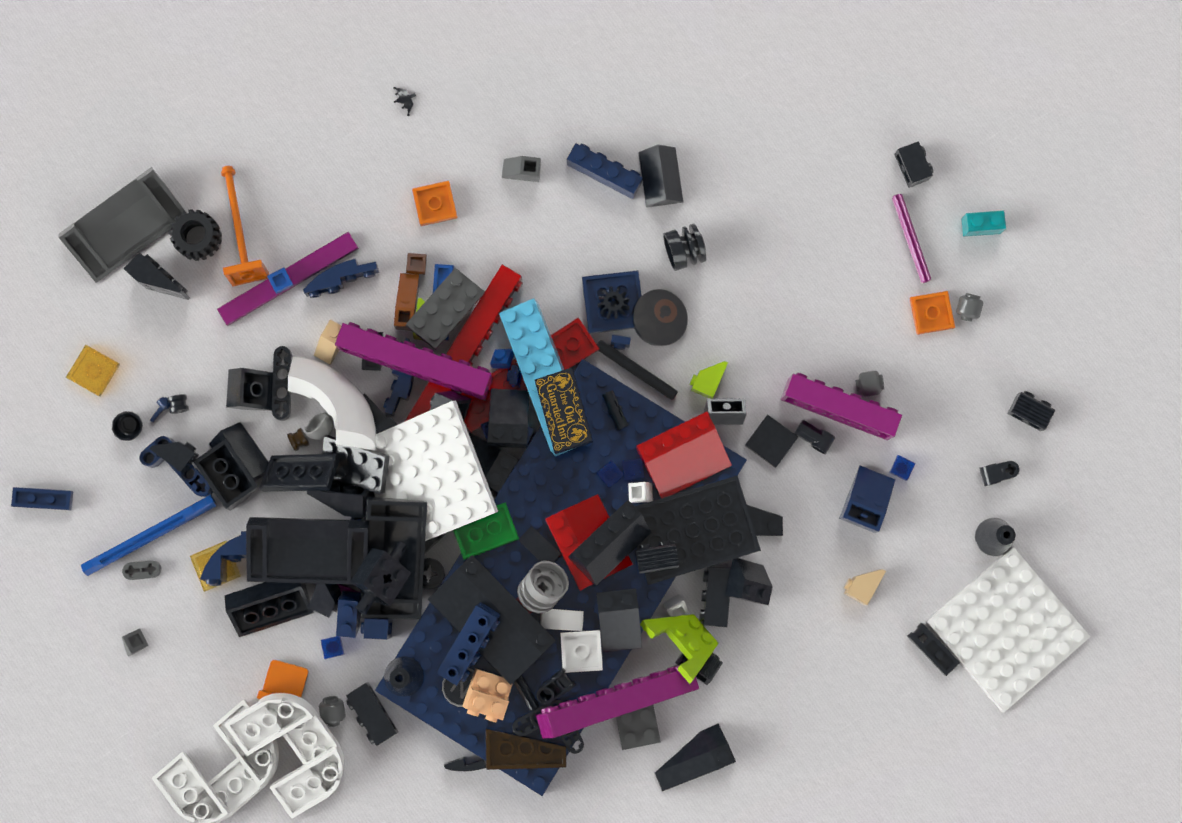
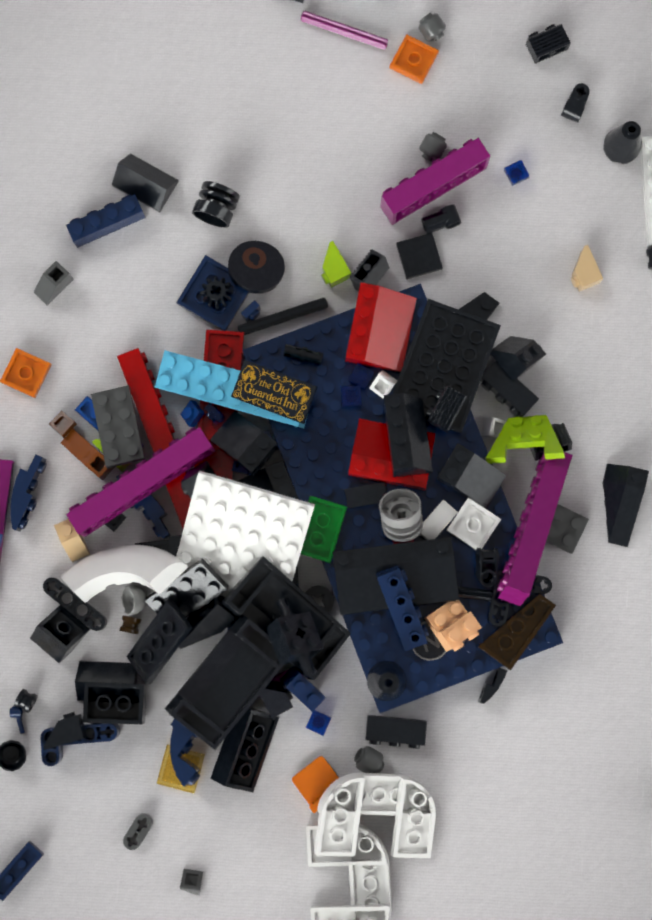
camera: 45 degrees left, 0 degrees up
(148, 535) = (114, 805): blue piece -> none
(377, 628) = (331, 675): dark blue brick -> none
(868, 499) = (522, 217): dark blue slope -> none

